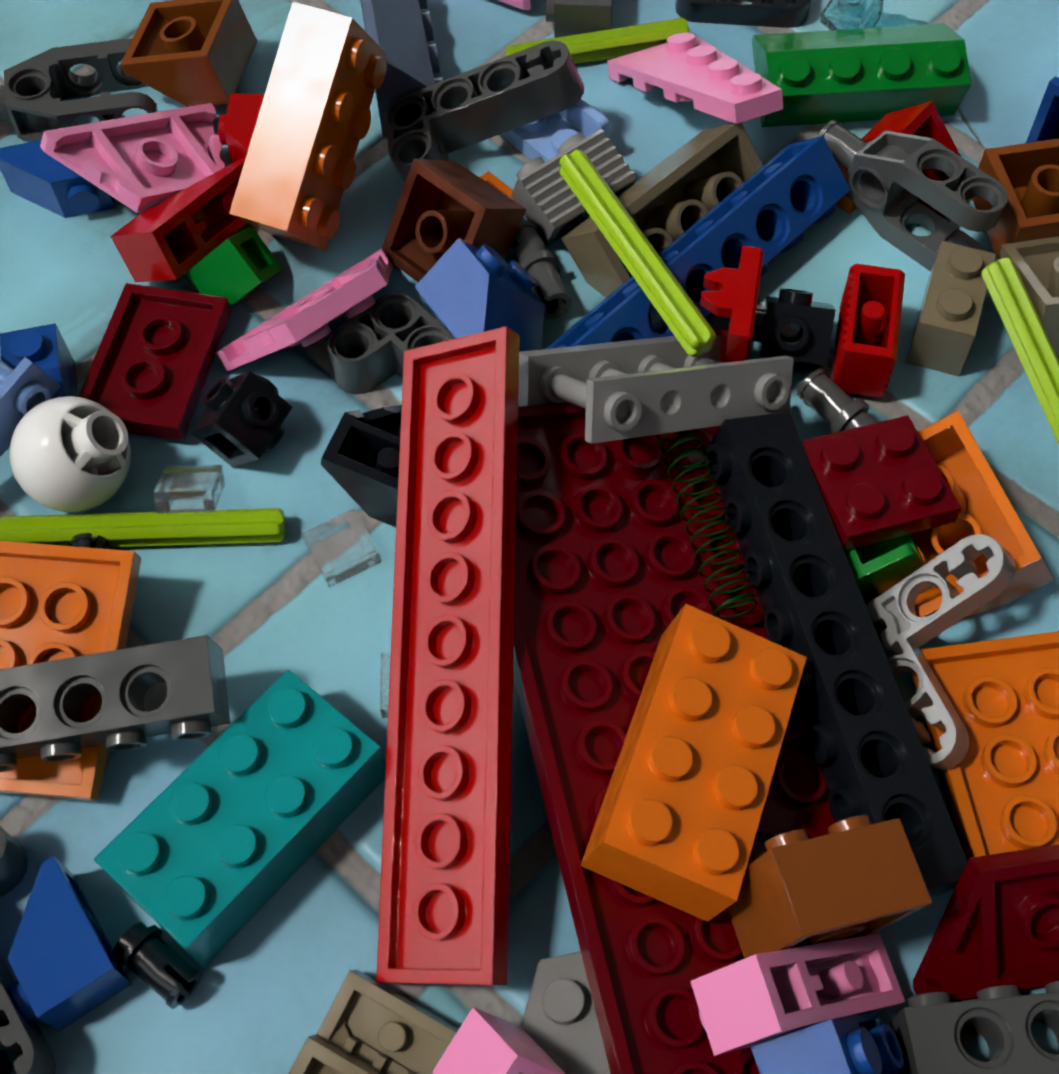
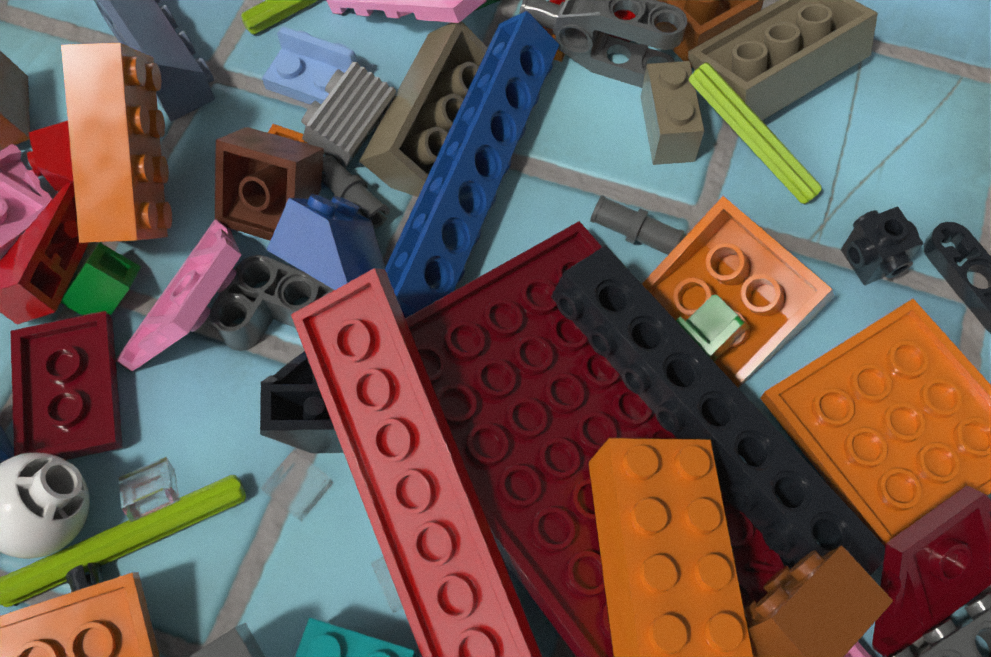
camera: 25 degrees left, 5 degrees up
(242, 418) = (167, 411): black brick -> none
(482, 104) = (245, 73): dark grey beam -> none
(637, 254) = (432, 157): lime axle -> none
(652, 386) = (495, 262): light grey fence -> none
(687, 453) = (633, 412): dark green piece -> none
(735, 297) = (532, 195): red piece -> none
(813, 337) = (568, 171): black brick -> none
(868, 330) = (623, 152): red brick -> none
(880, 482) = (693, 273): dark red plate -> none
(907, 632) = (758, 379): light grey beam -> none

